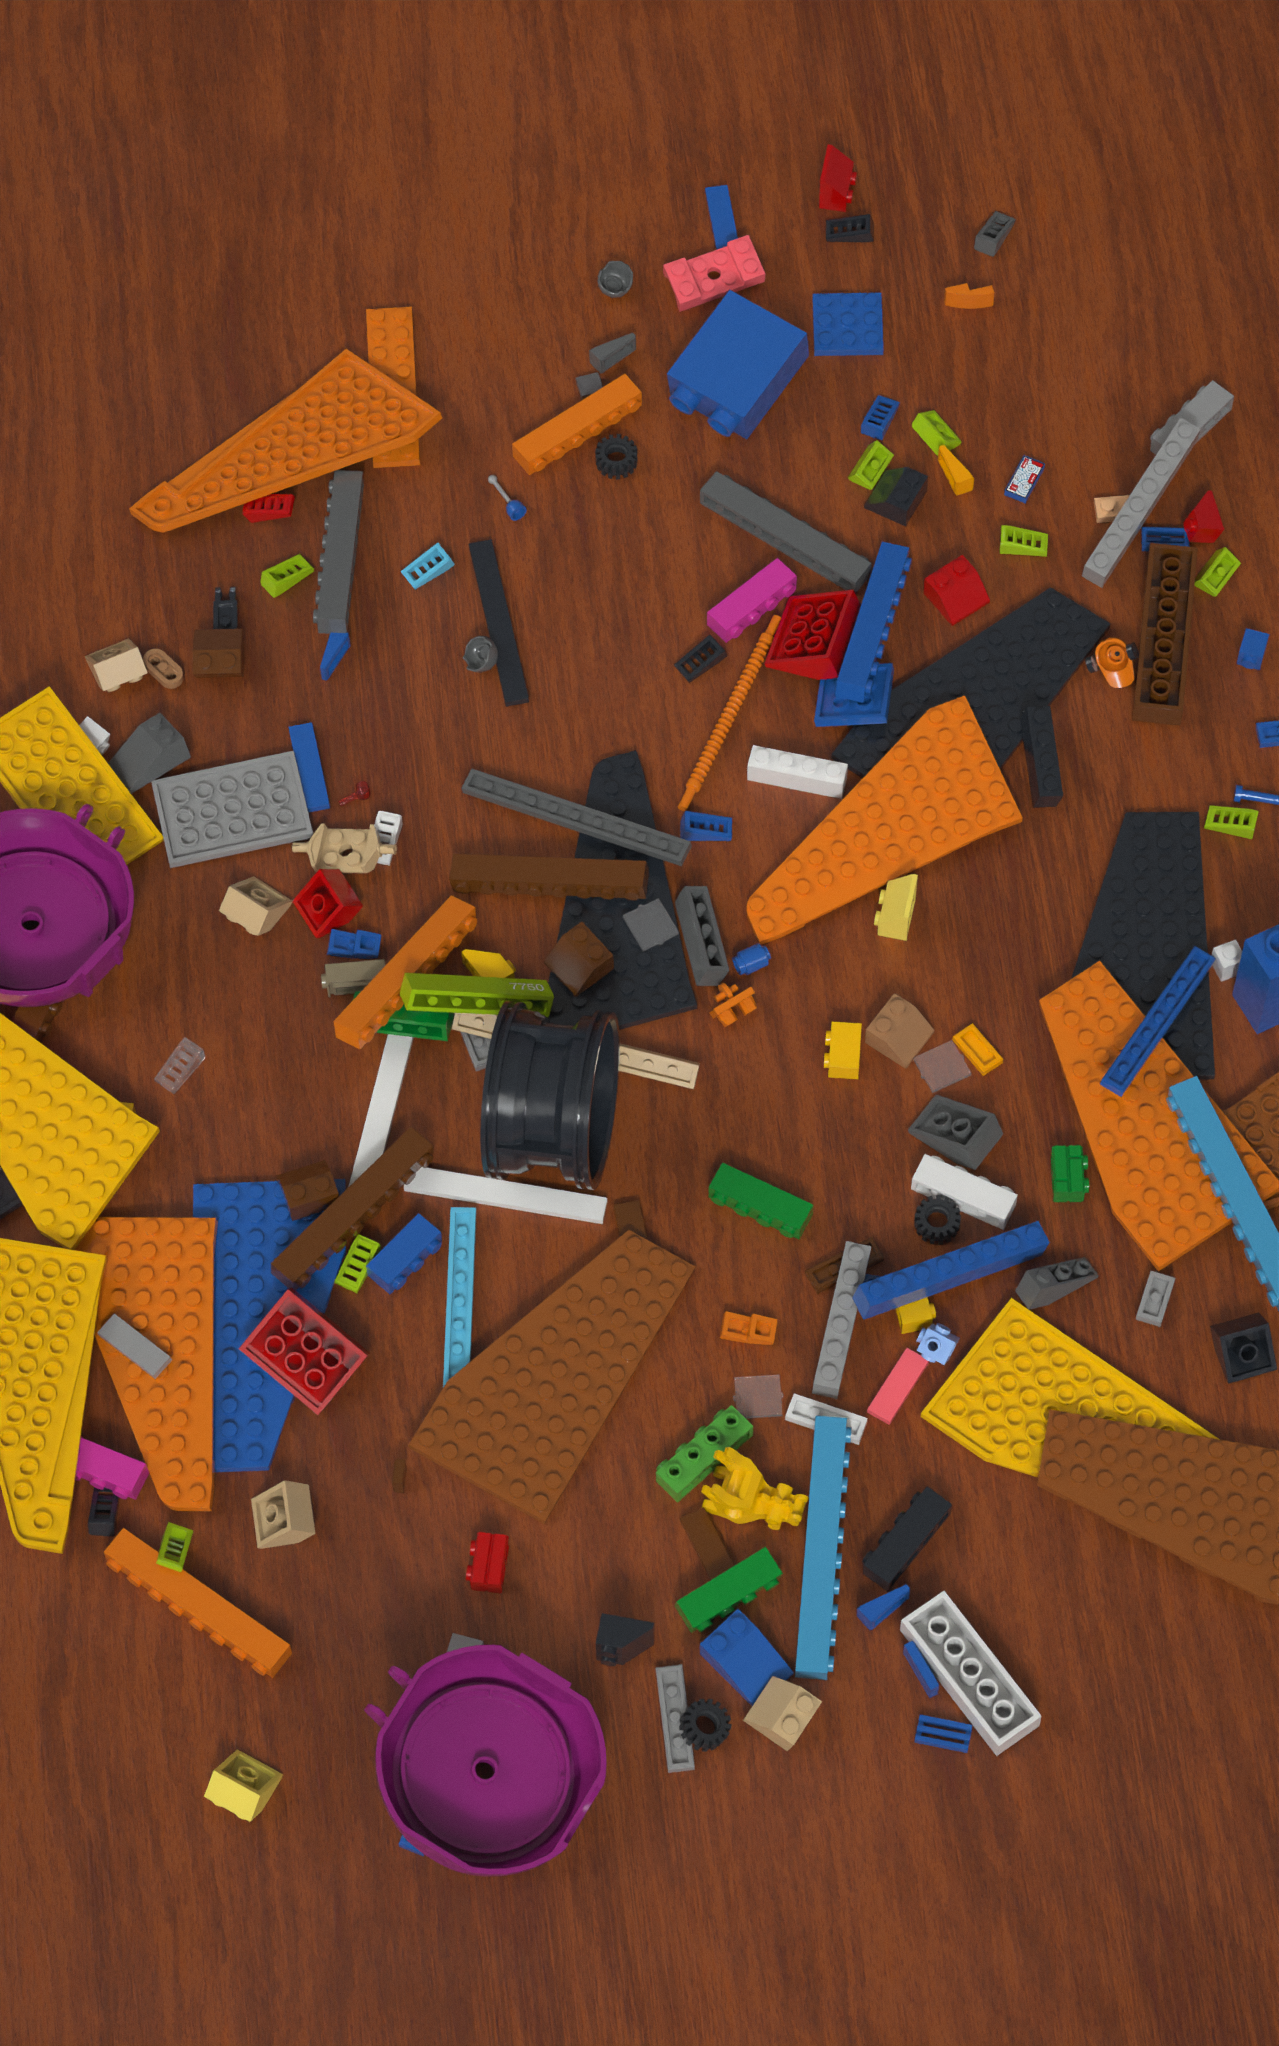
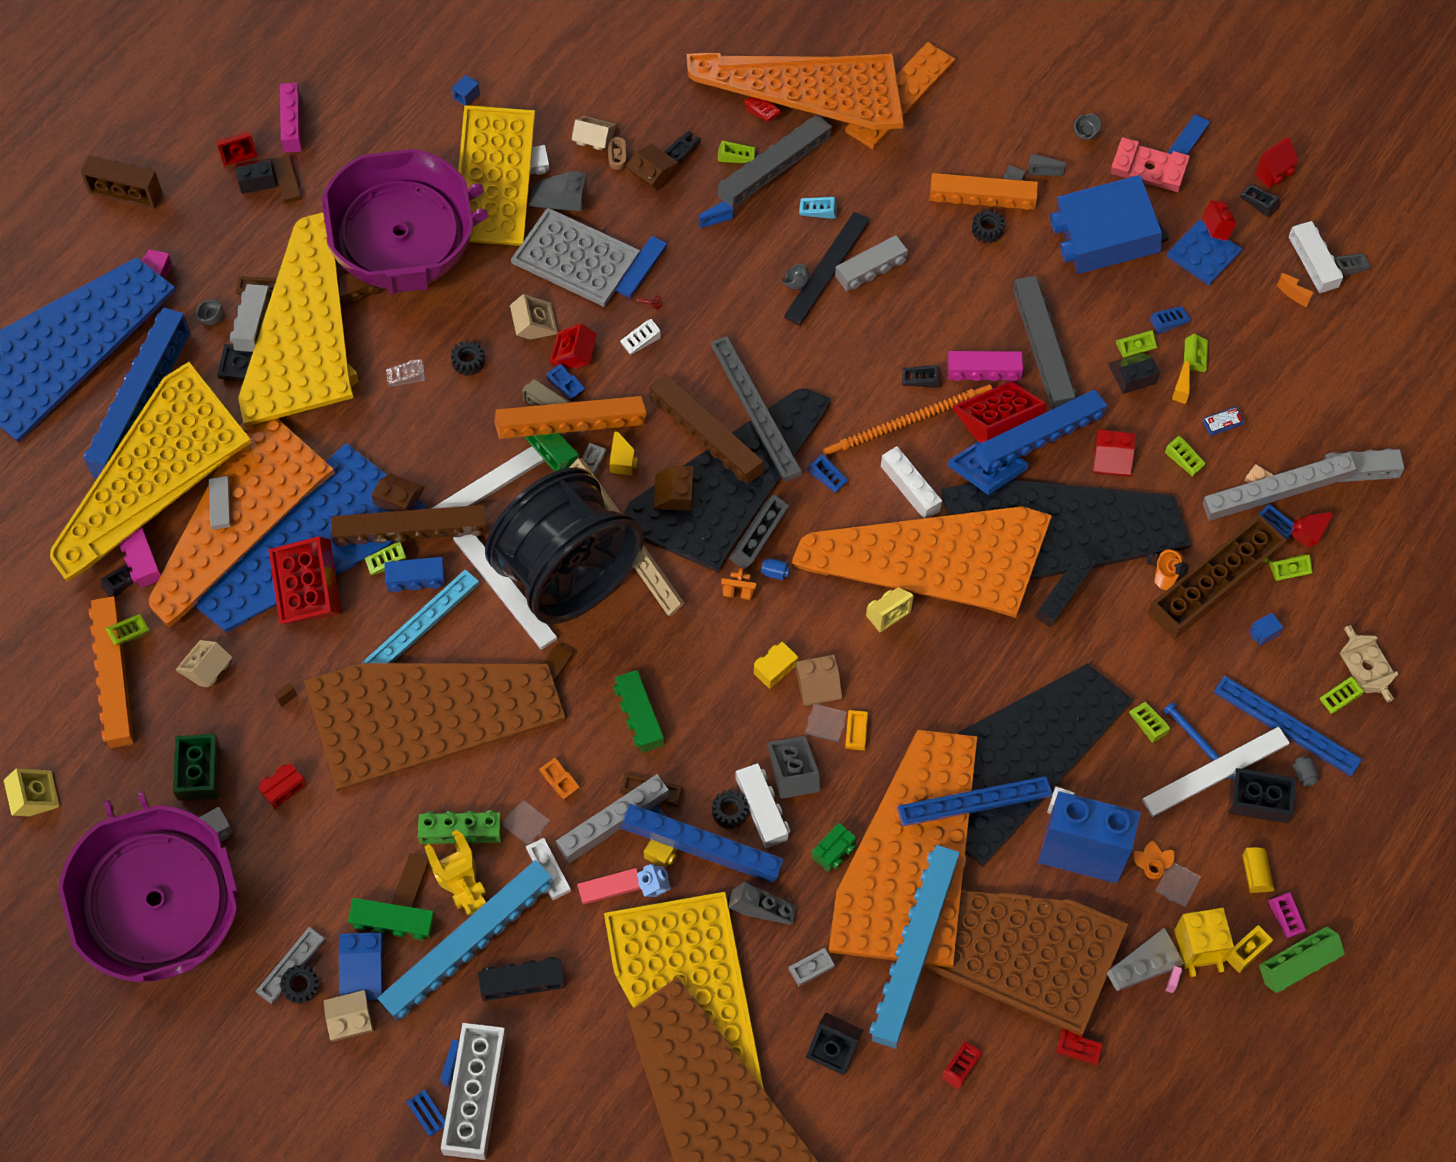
camera: 40 degrees right, 0 degrees up
(229, 986) = (467, 367): none -> black tyre
(327, 846) = (607, 316): tan plate -> none
(388, 1616) = (196, 767): none -> dark green brick
(473, 993) = (591, 457): lime brick -> none
(514, 508) = (900, 211): blue hinge -> none
(540, 583) = (871, 263): none -> light grey brick
(622, 1639) = (300, 892): black slope -> none
(650, 924) = (736, 502): clear piece -> none
(836, 279) = (1219, 220): none -> red brick
(877, 1610) = (466, 1007): blue slope -> none
(959, 248) = (1315, 257): none -> white brick

